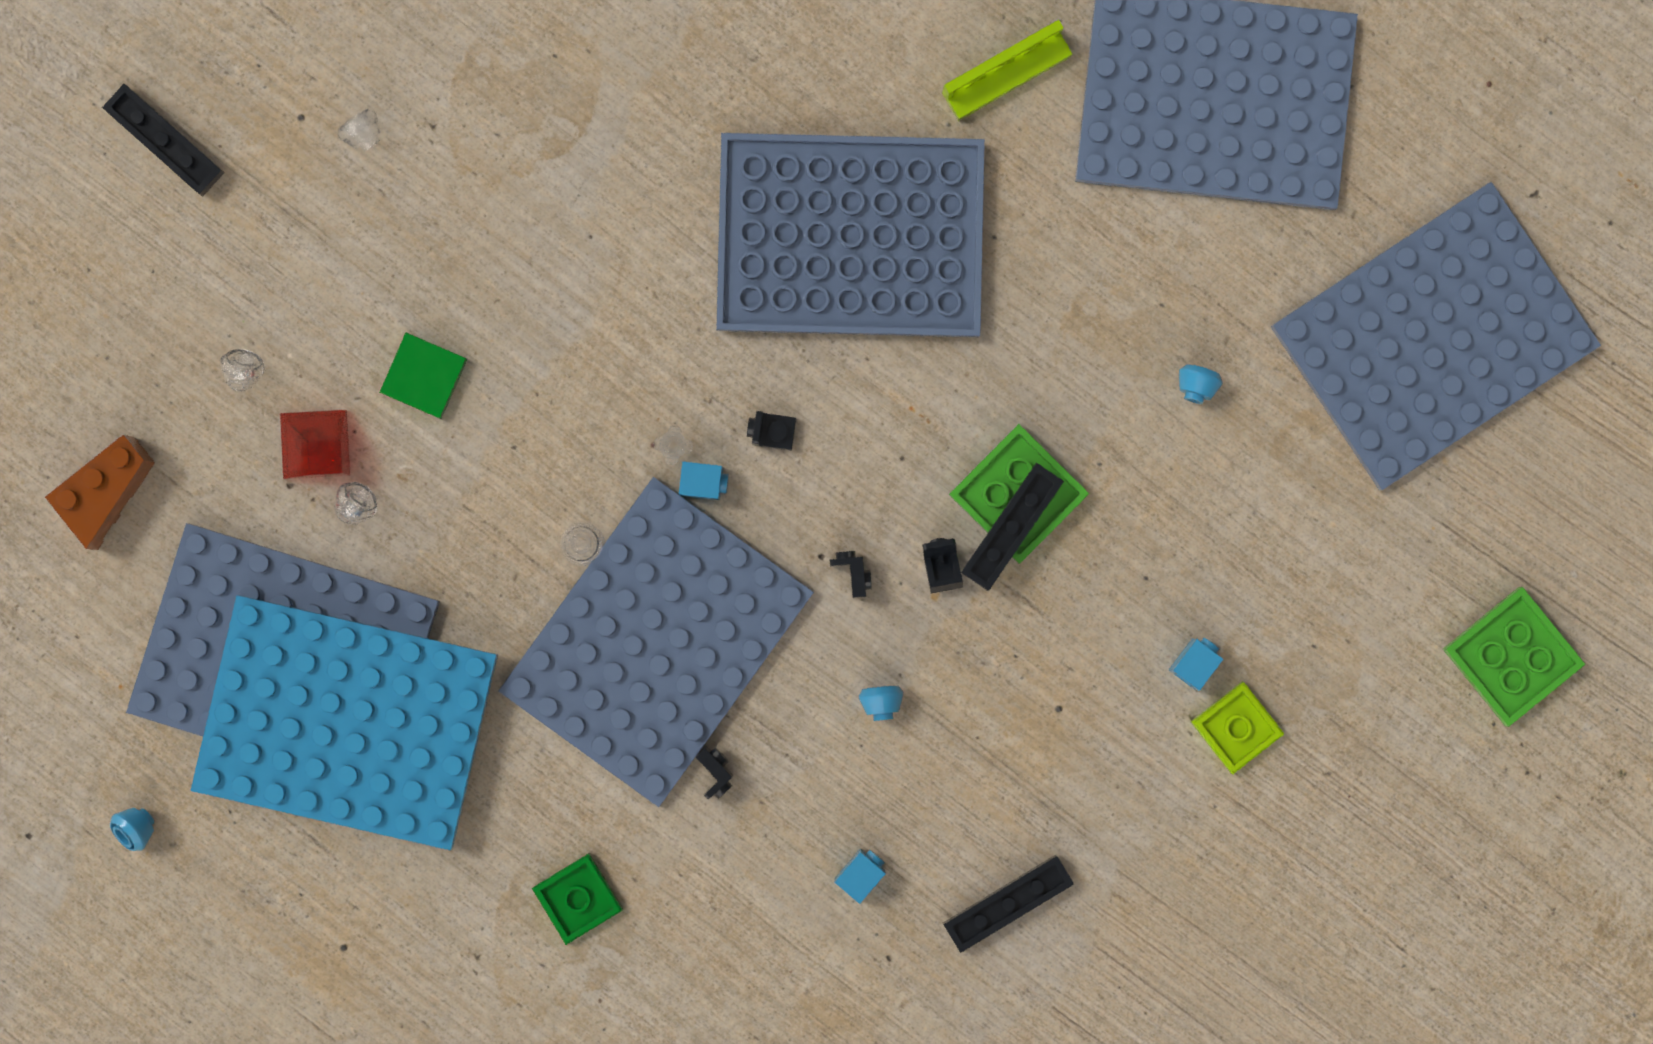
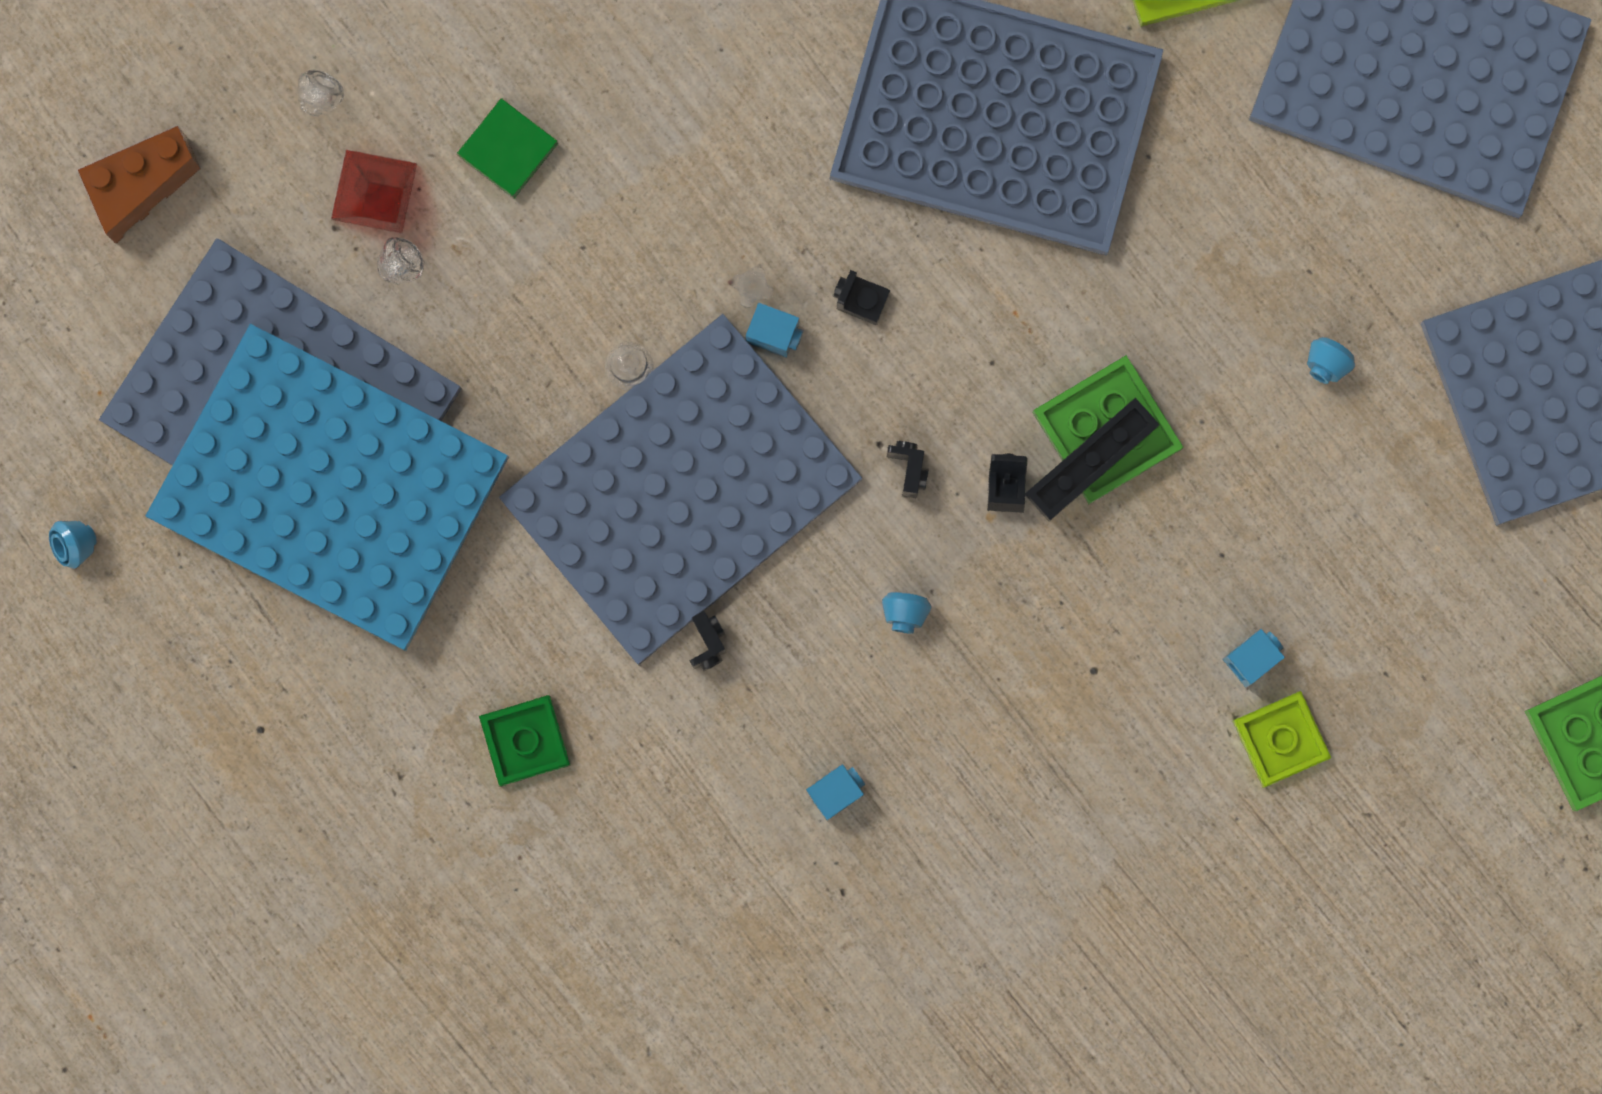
camera: 15 degrees right, 5 degrees down
(1008, 903) = (987, 863): black plate -> none

